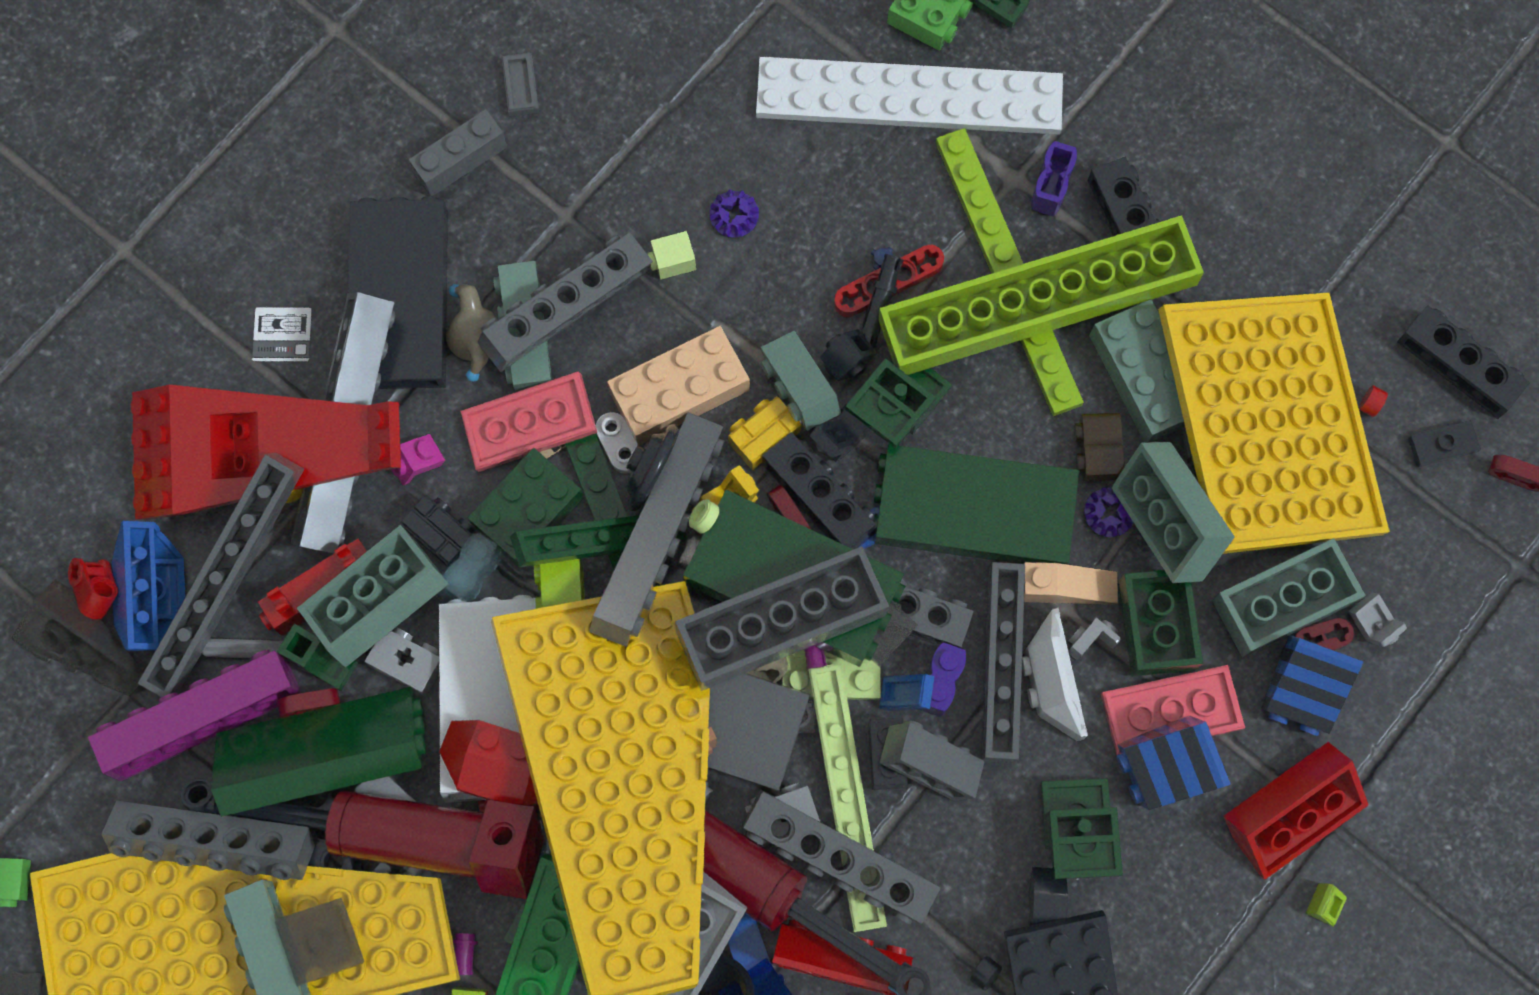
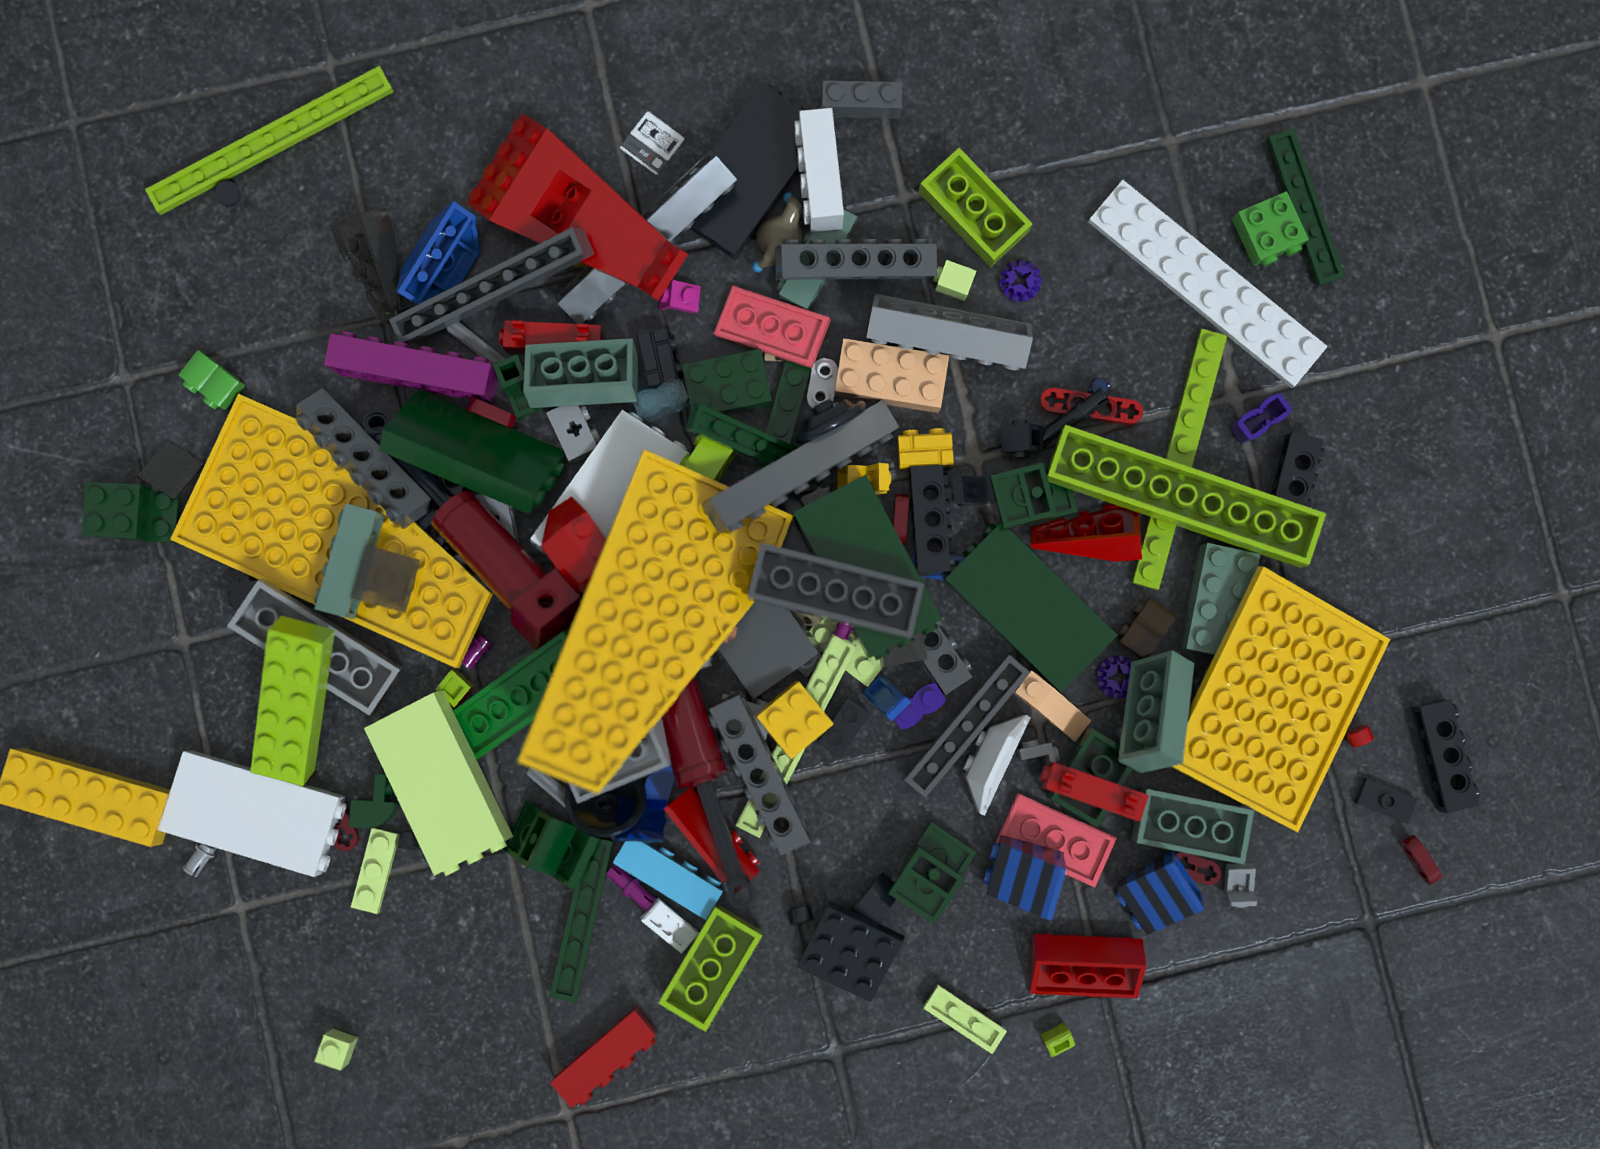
camera: 35 degrees right, 10 degrees up
(92, 586) = (405, 230): red piece -> none
(469, 239) = (820, 166): none -> white brick
(520, 84) = (941, 79): dark grey tile -> none
(640, 175) = (974, 207): none -> lime brick
(703, 516) = (837, 482): yellowish green tile -> none
(704, 303) = (950, 332): none -> light grey brick
(799, 381) = (974, 433): sand green brick -> none
(833, 778) = (793, 719): none -> yellow brick
(932, 761) = (868, 755): dark grey brick -> none
(993, 388) = (1102, 535): none -> red wedge
(1172, 629) = (1094, 790): none -> red brick
(1222, 952) = (964, 1018): none -> yellowish green plate

